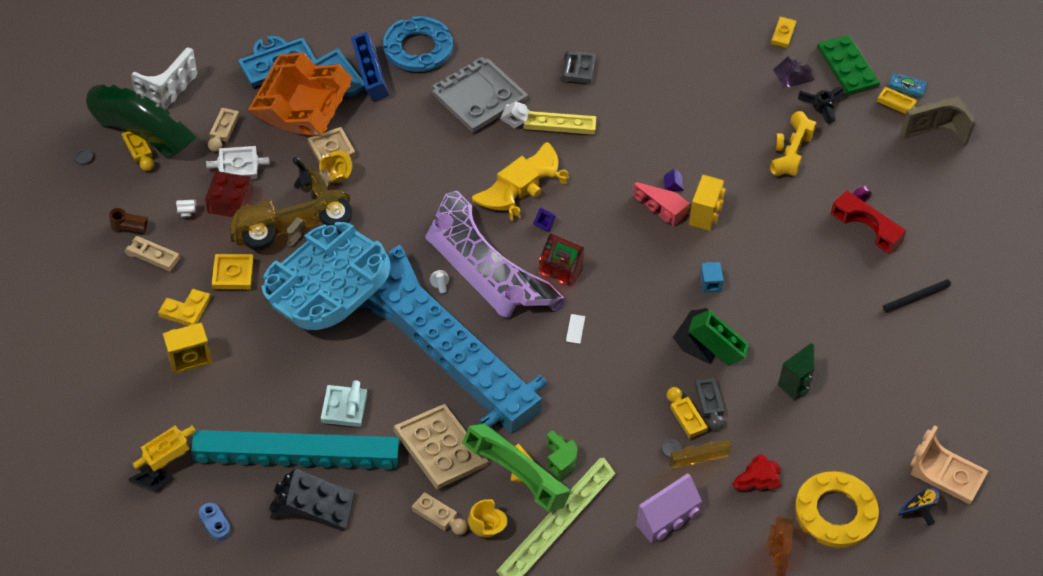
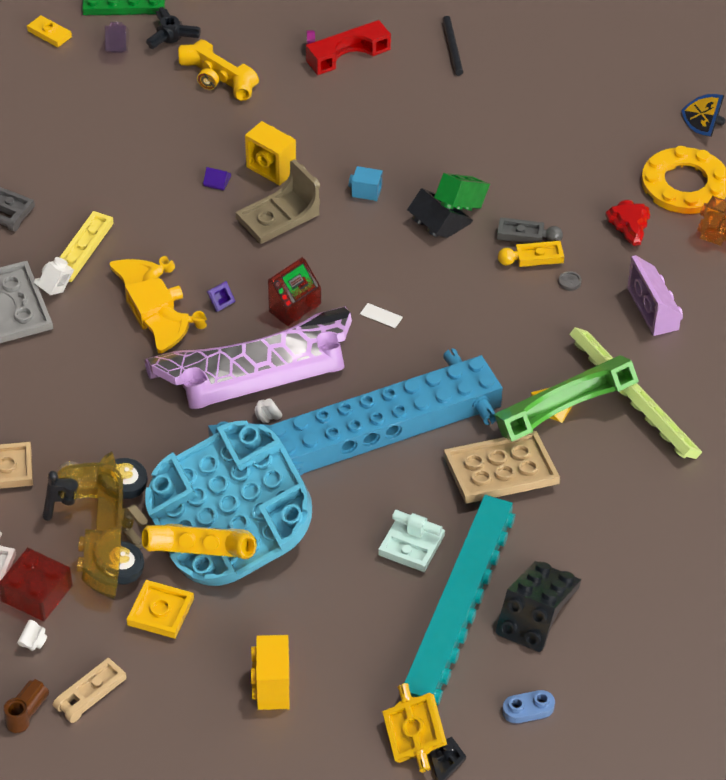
camera: 70 degrees left, 5 degrees down
(187, 312) = (199, 673): yellow plate -> none
(284, 252) = (199, 540): none -> yellow plate
(338, 164) = (47, 457): yellow helmet -> none
(439, 514) = (589, 491): tan plate -> none
(486, 519) = (619, 447): yellow helmet -> none
(564, 455) = (552, 361): bright green brick -> none
(653, 229) = (285, 209): none -> dark tan bracket
(665, 203) = (245, 191): coral slope -> none
(699, 454) = (588, 263): clear yellow plate -> none
(798, 373) = (524, 148): dark green slope -> none
(946, 470) = (669, 89): light nougat bracket -> none

